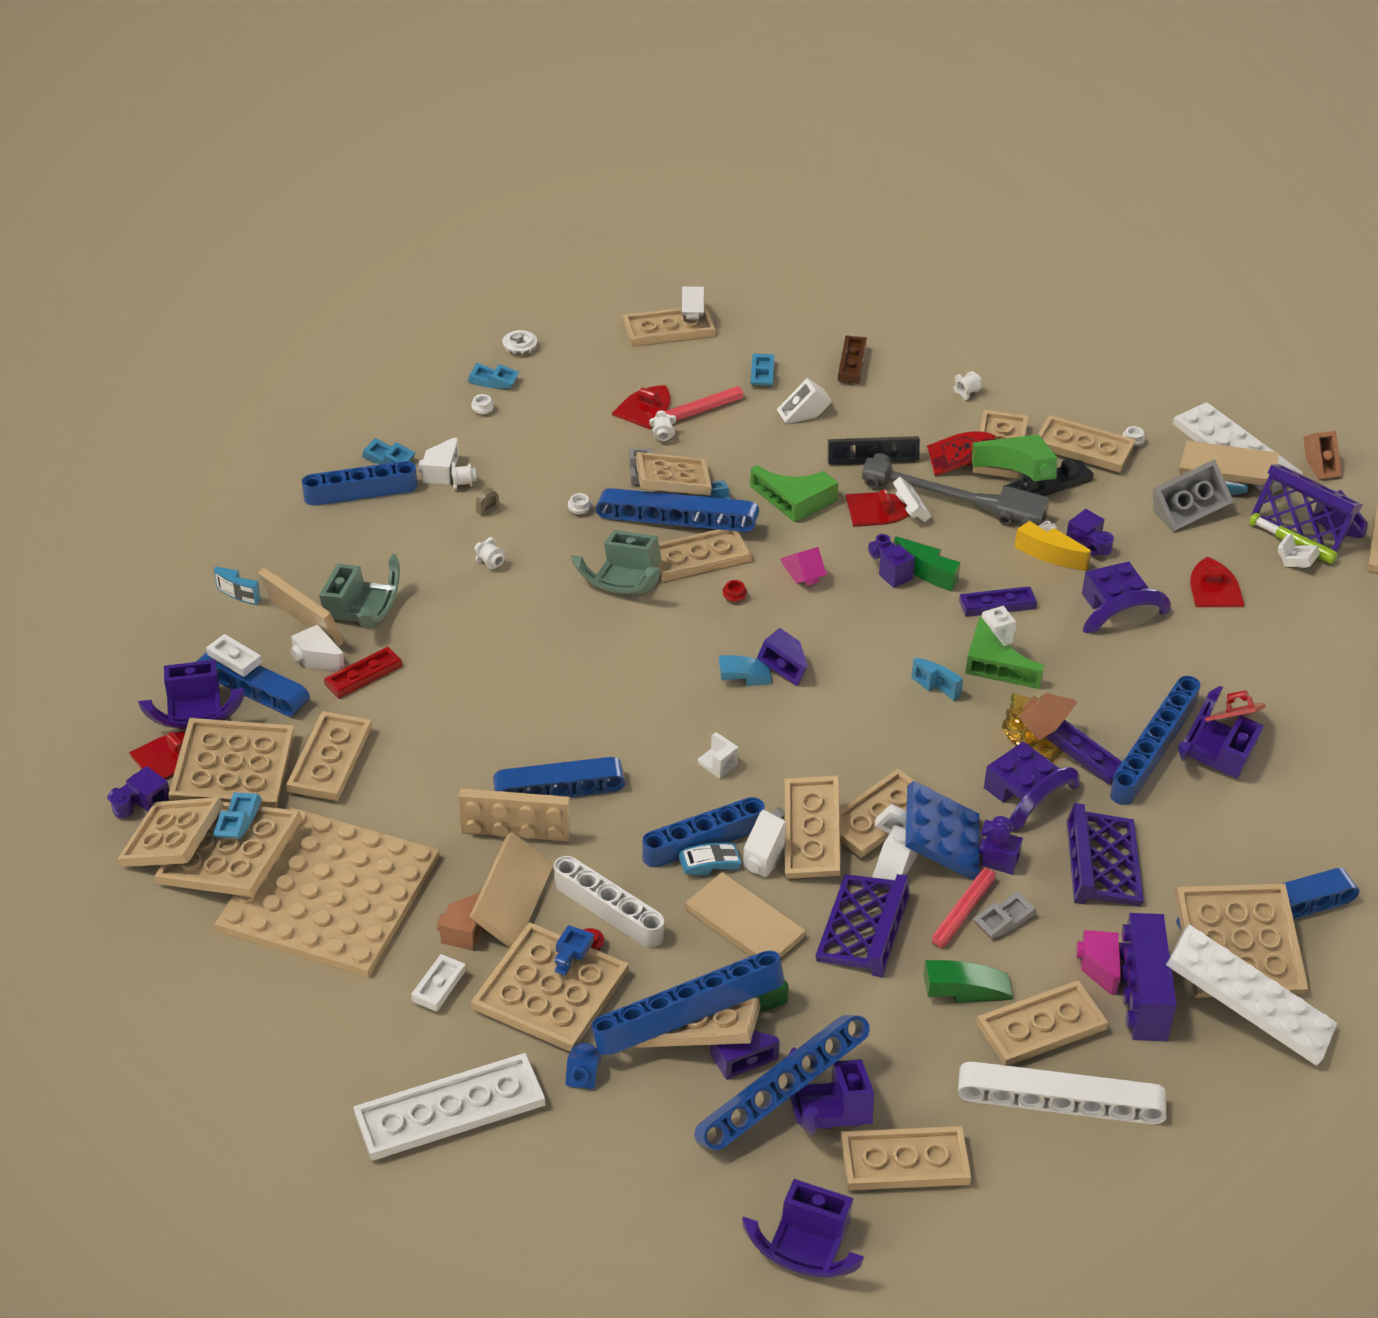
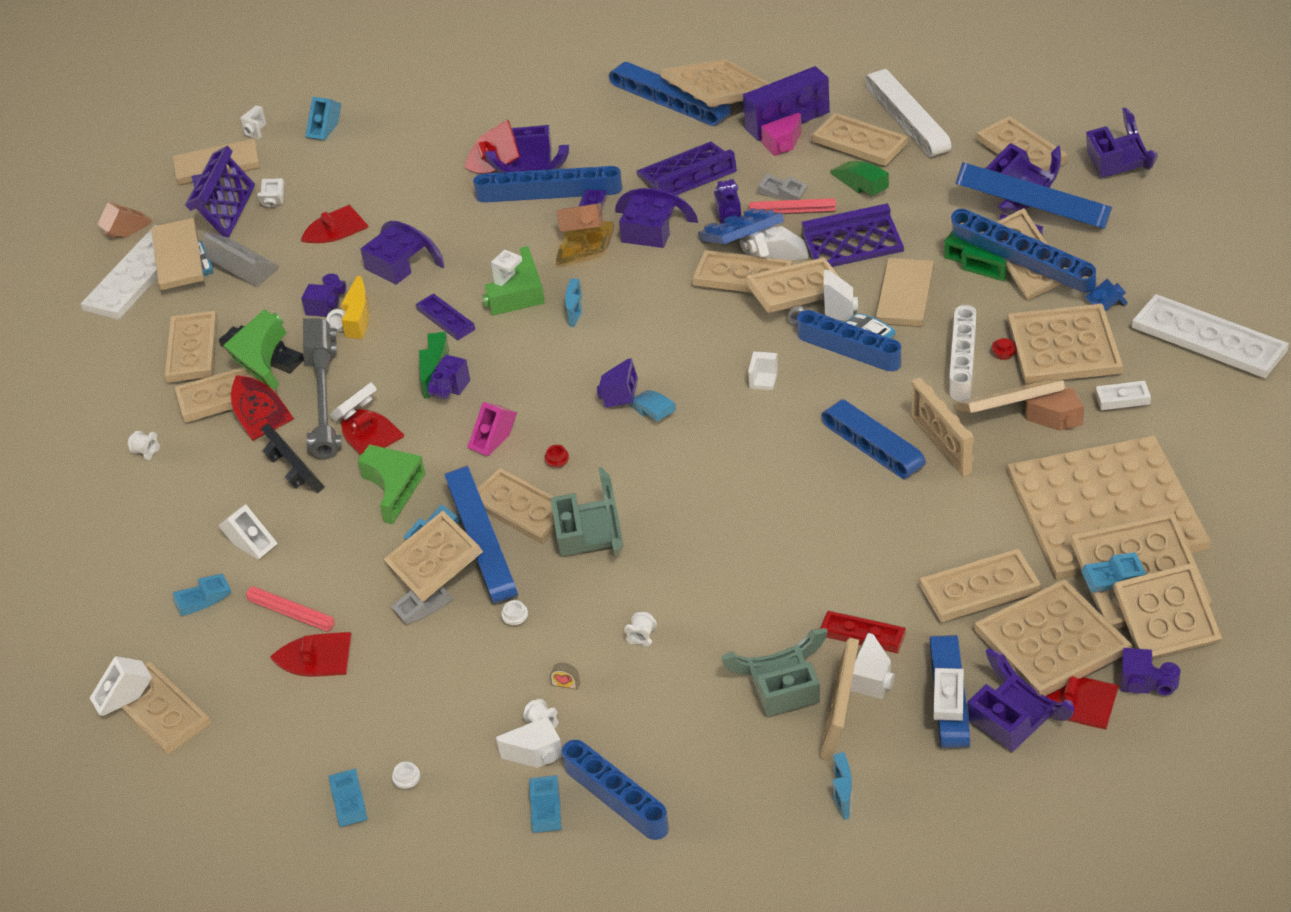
camera: 115 degrees left, 0 degrees up
(513, 342) = (258, 806): white gear -> none
(571, 944) = (1030, 334): blue plate -> none
(663, 426) = (354, 610): white brick -> none
(852, 359) = (144, 537): reddish brown plate -> none
(1135, 433) = (159, 325): white plate -> none
(1252, 994) = (763, 60): white plate -> none
(1326, 554) = (247, 206): lime piece -> none

